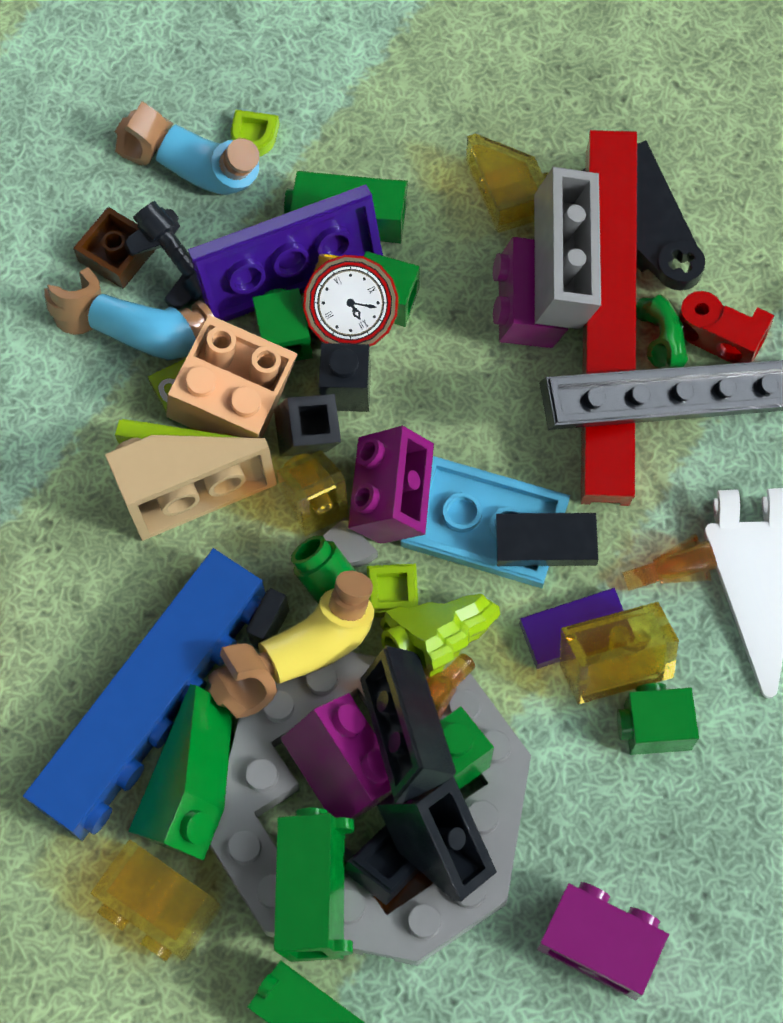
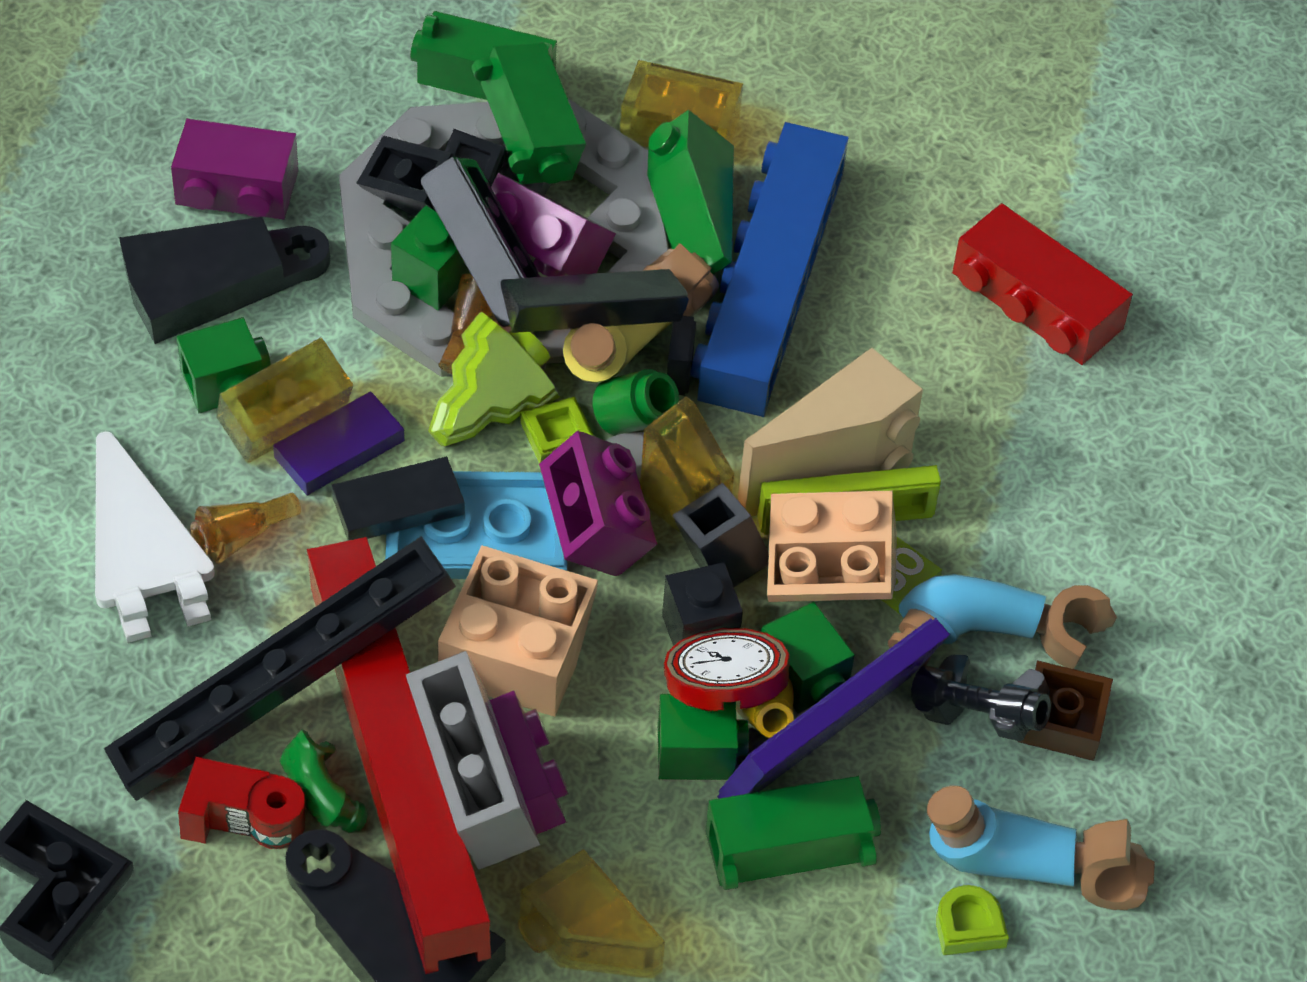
camera: 155 degrees right, 15 degrees down
(336, 627) = (594, 299): none -> black slope
(489, 393) = (520, 626): none -> light nougat slope
(646, 838) = (215, 269): none -> black piece

